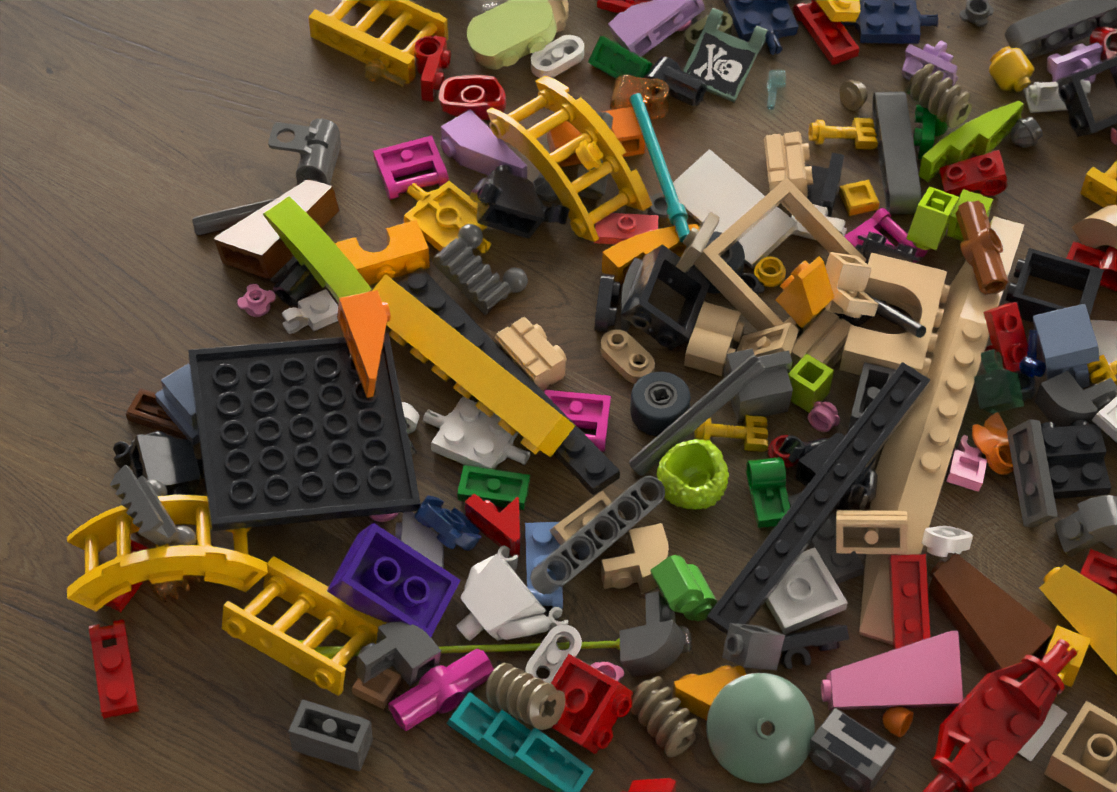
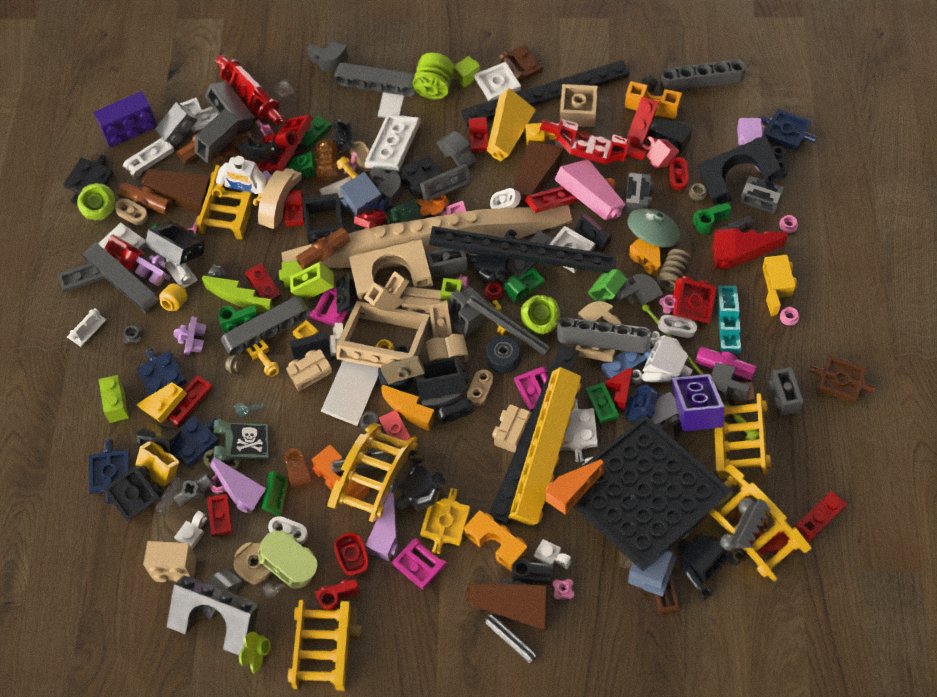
camera: 115 degrees left, 5 degrees up
(315, 249) = (525, 557): lime slope -> none
(317, 146) = (443, 618): dark grey piece -> none
(473, 277) = (479, 484): dark grey gear -> none
(525, 696) = (709, 322): dark tan piece -> none
(589, 155) = (375, 448): yellow plate -> none
(675, 211) = (381, 398): teal bar -> none
(681, 85) = (275, 456): black piece -> none
(753, 646) = (618, 245): dark grey brick -> none
(806, 291) = (406, 306): light orange slope -> none
(871, 532) = (528, 221): tan brick -> none
(899, 318) = (394, 263): black bar -> none
(938, 96) = (226, 308): dark tan piece -> none

